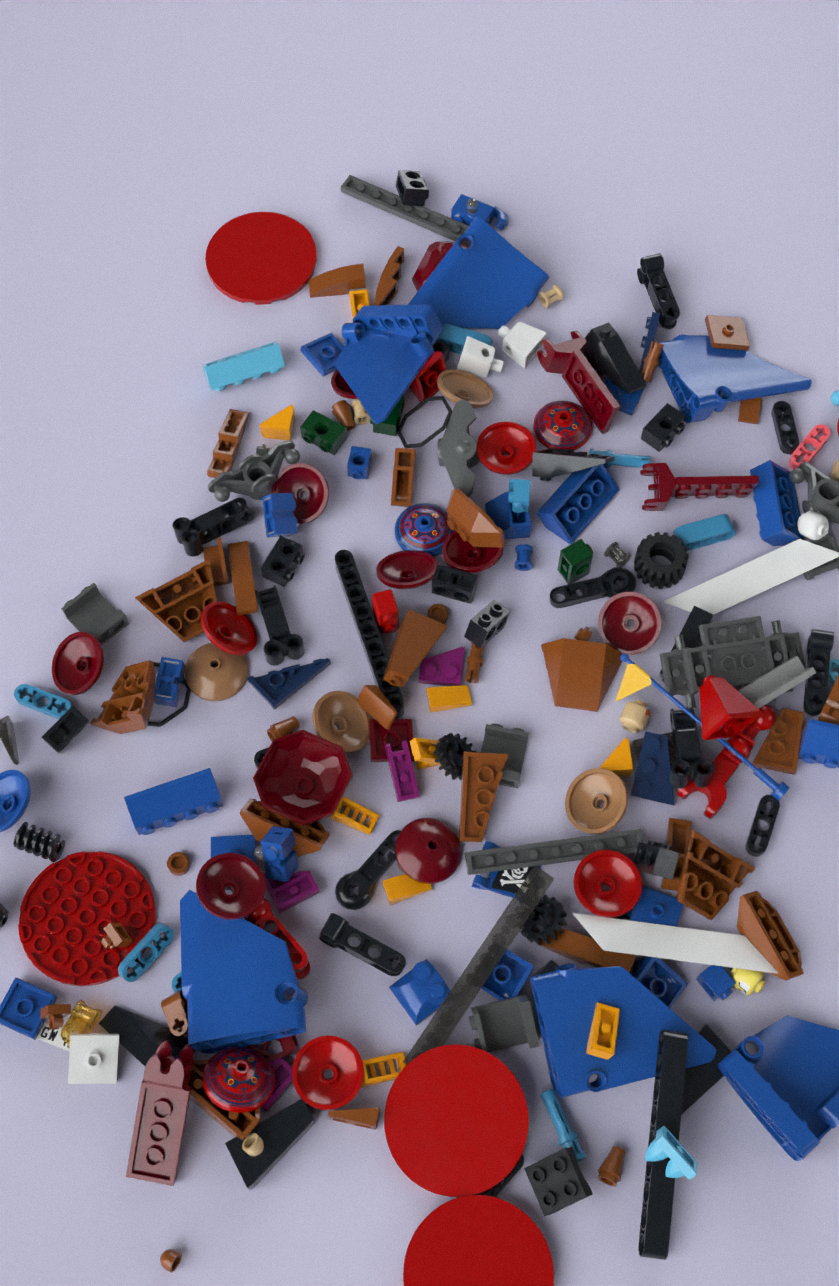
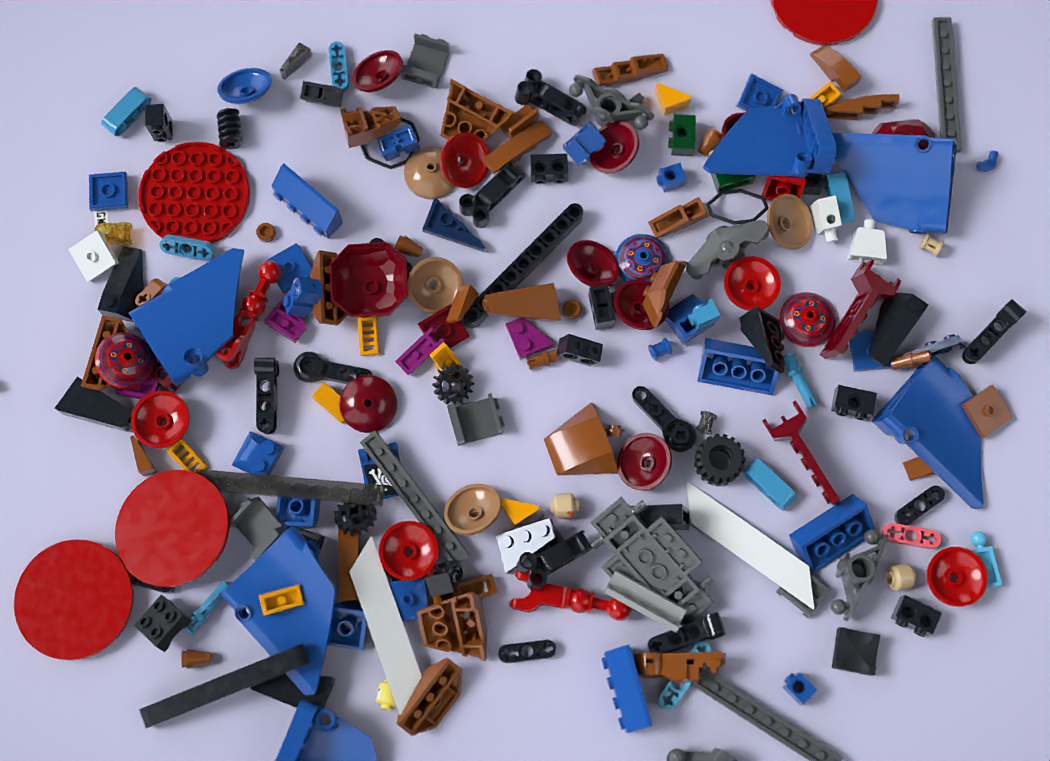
camera: 60 degrees right, 10 degrees up
(55, 1014) = (110, 213): dark orange tile -> none
(116, 936) = (186, 220): dark orange tile -> none
(161, 1116) = (74, 321): hinge -> none
(231, 873) = (258, 262): dark red dish -> none
(243, 366) = (706, 40): medium azure brick -> none
(253, 1145) = (81, 395): tan hinge -> none
(385, 611) = (545, 267): red brick -> none
(411, 188) = (968, 73): black brick -> none
(448, 697) = (503, 354): light orange slope -> none
(467, 209) = (976, 137): blue piece -> none
(478, 791) = (434, 414): dark orange wing -> none
(575, 561) = (676, 391): dark green brick -> none
(637, 679) = (588, 489): piece -> none
(665, 1146) = (214, 697): medium azure tile -> none
(716, 982) = (373, 672): blue brick -> none
(724, 709) = (597, 569): red slope -> none
(782, 743) = (605, 635): dark orange wing -> none
(813, 525) = (826, 571): white head -> none

